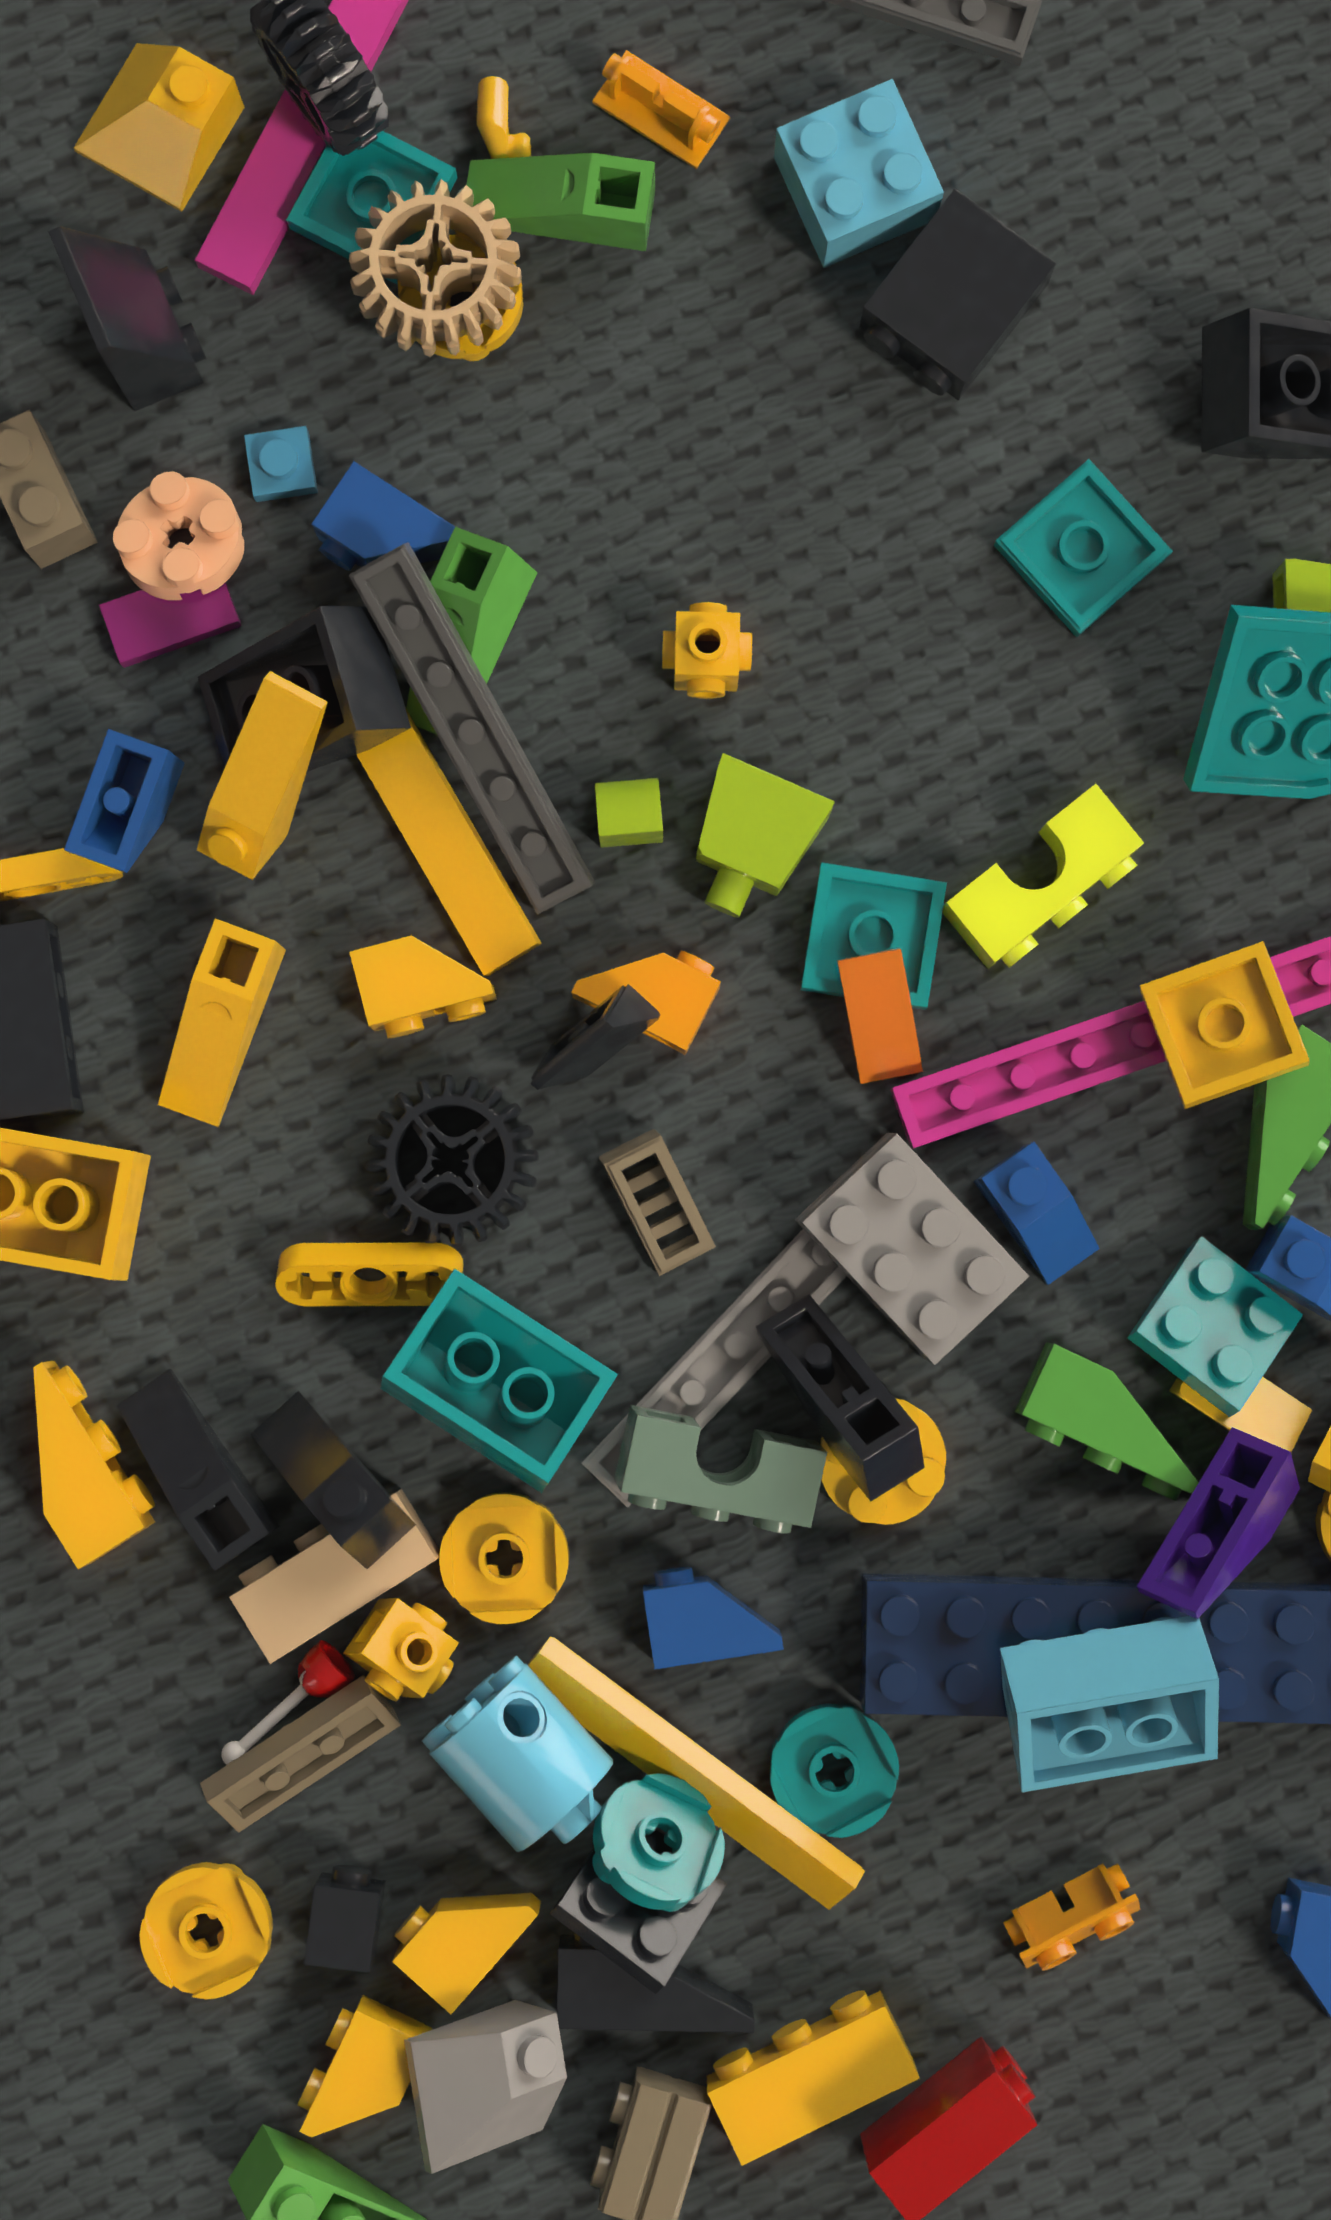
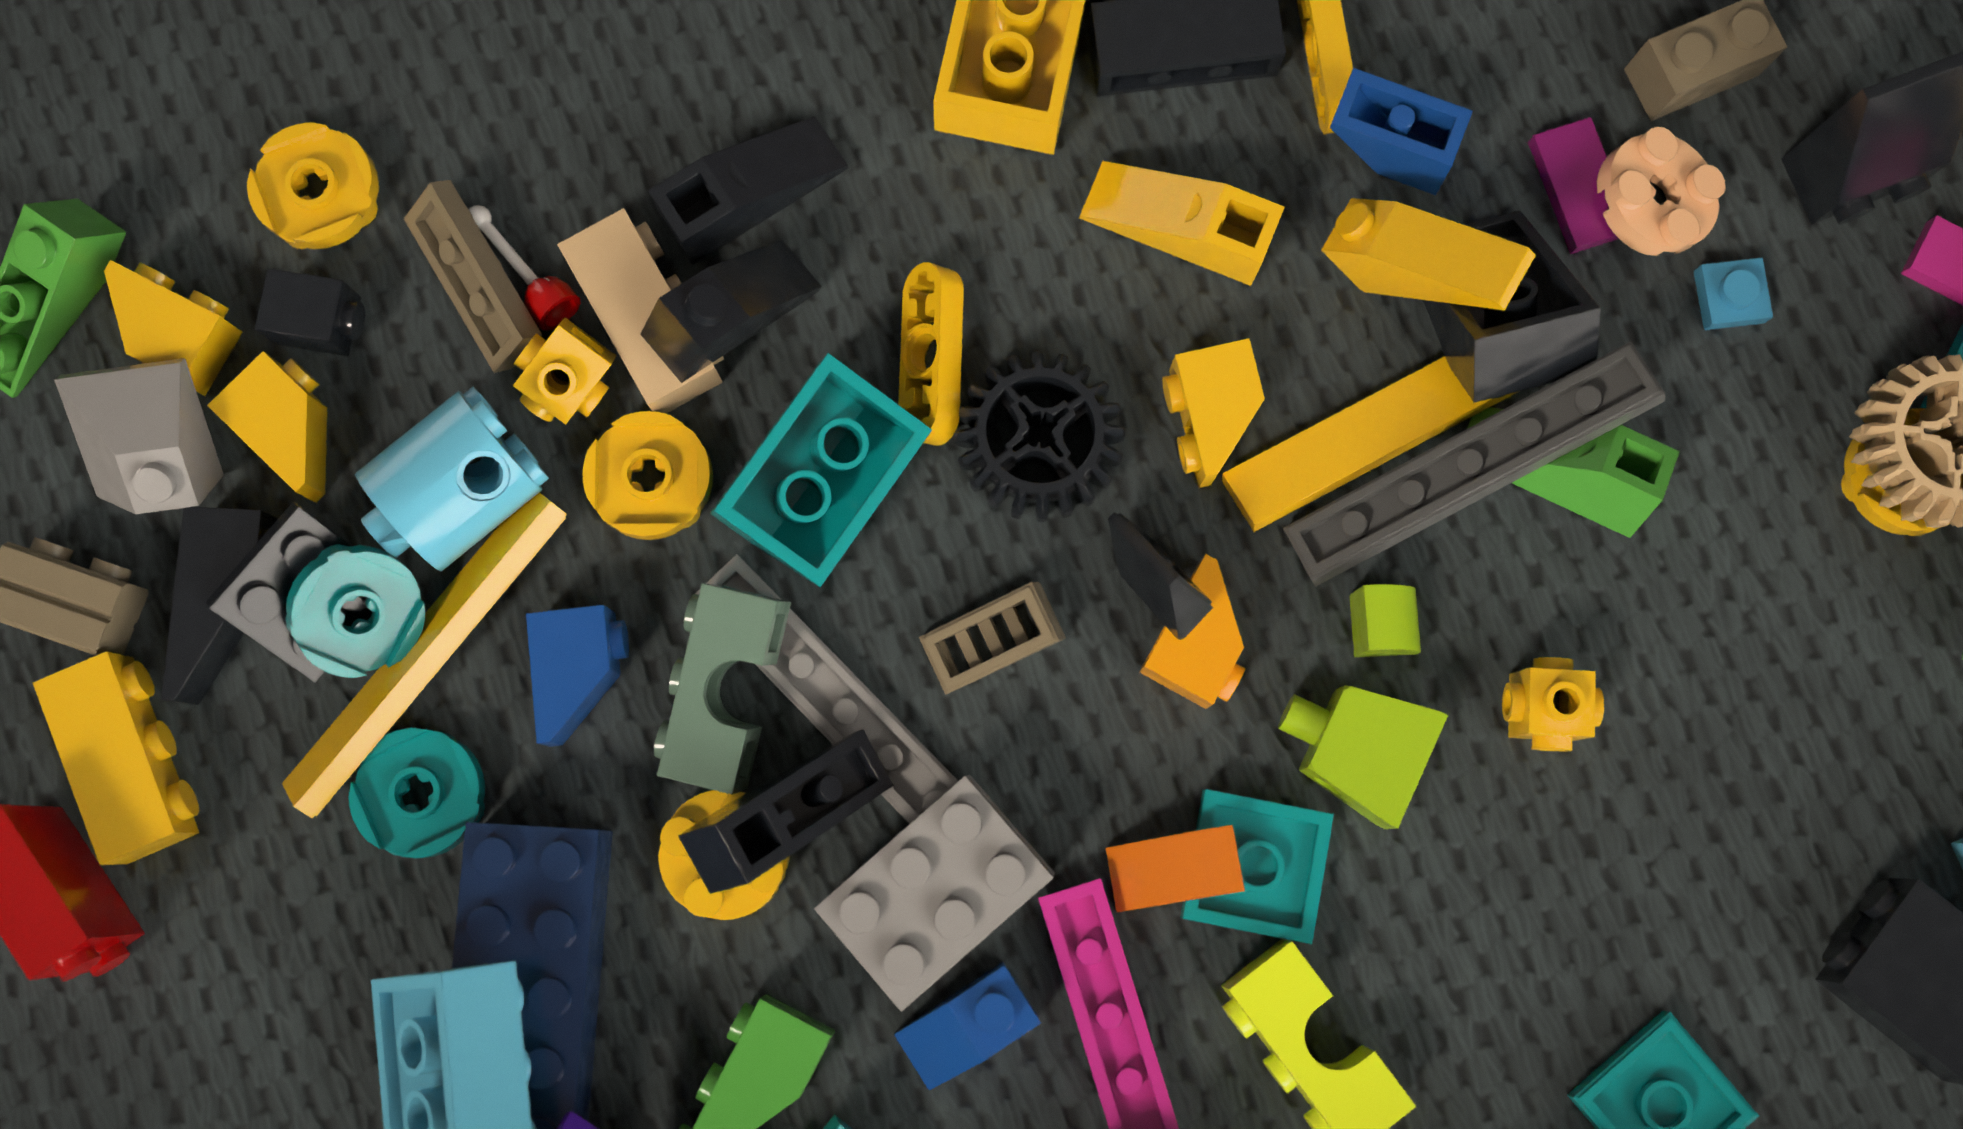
camera: 90 degrees right, 5 degrees down
(82, 1483) = (744, 80): yellow slope -> none
(372, 518) = (1690, 371): blue slope -> none
(1096, 1910) = (257, 1056): light orange hinge -> none

